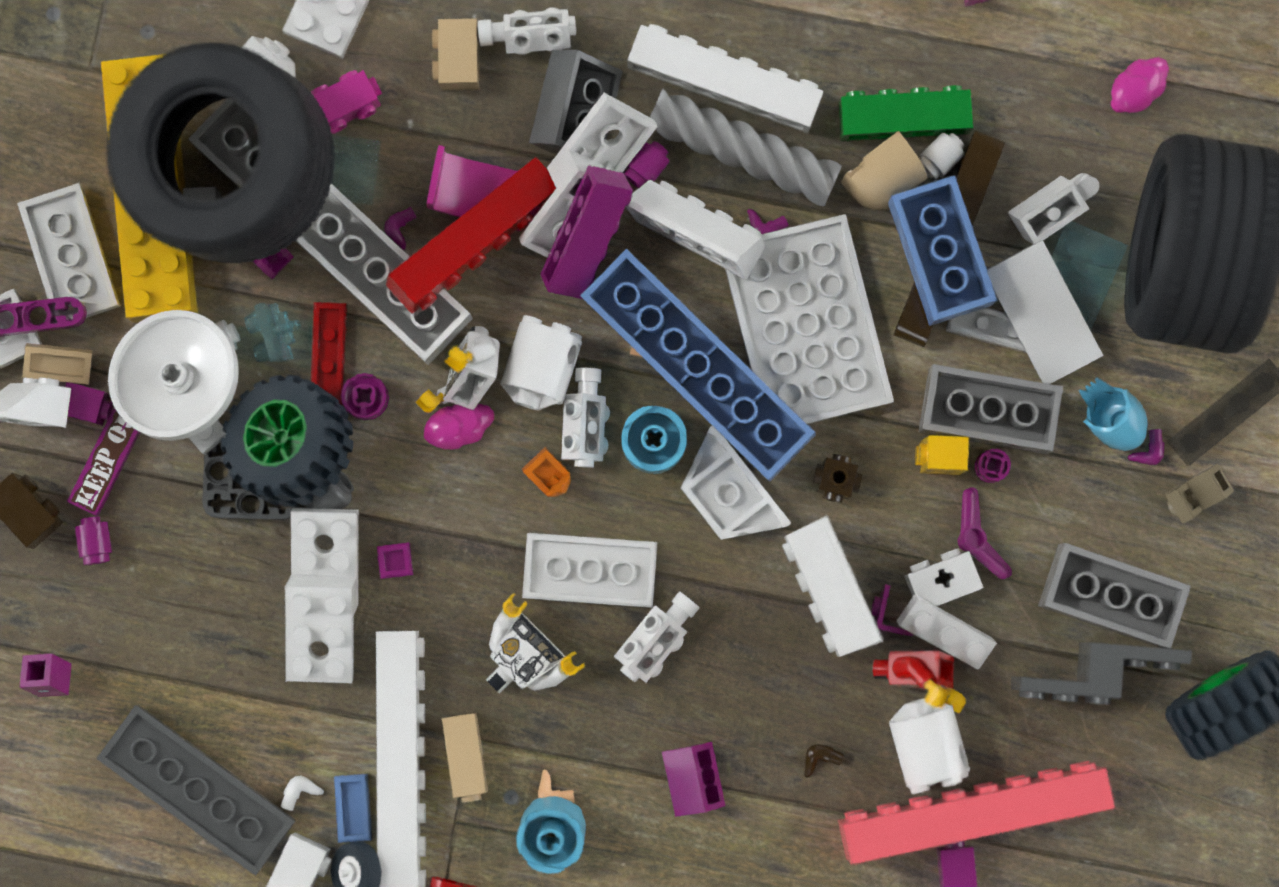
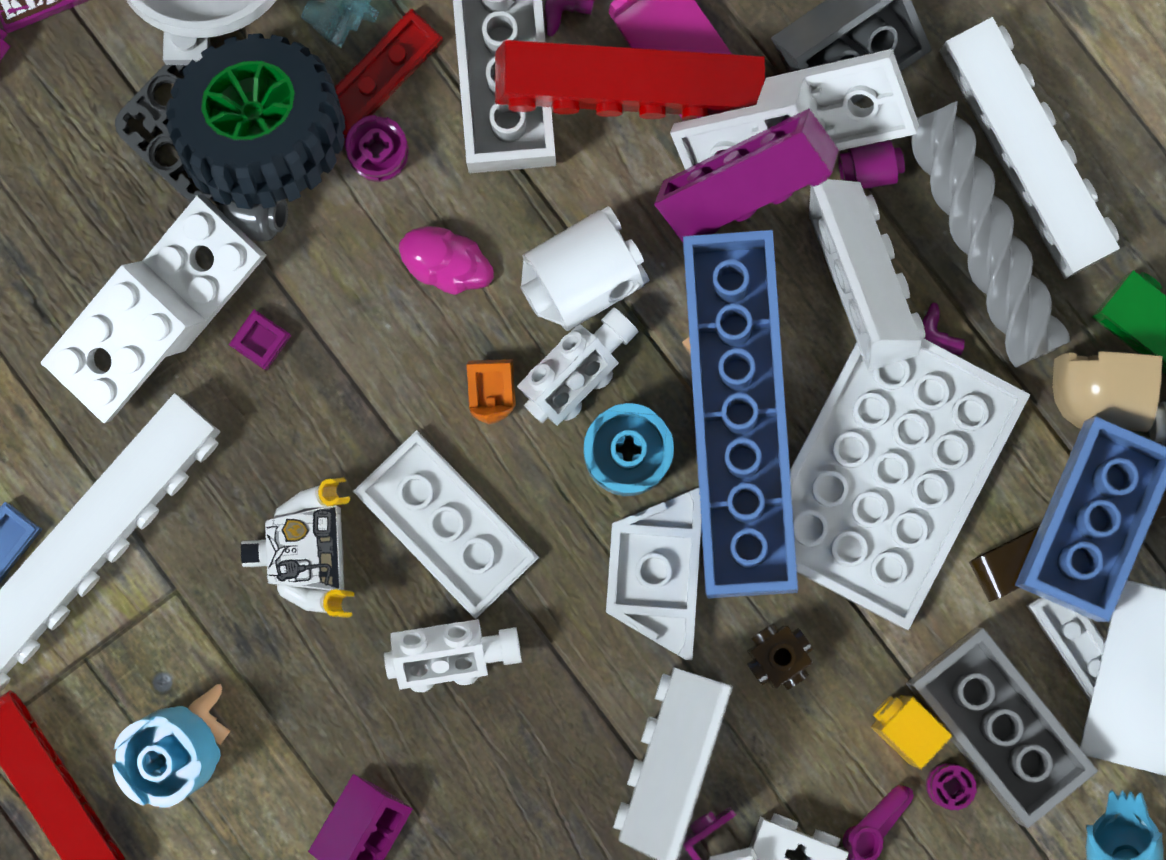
camera: 40 degrees right, 0 degrees up
(465, 757) = (151, 600): tan brick -> none
(470, 374) = (504, 215): white torso -> none

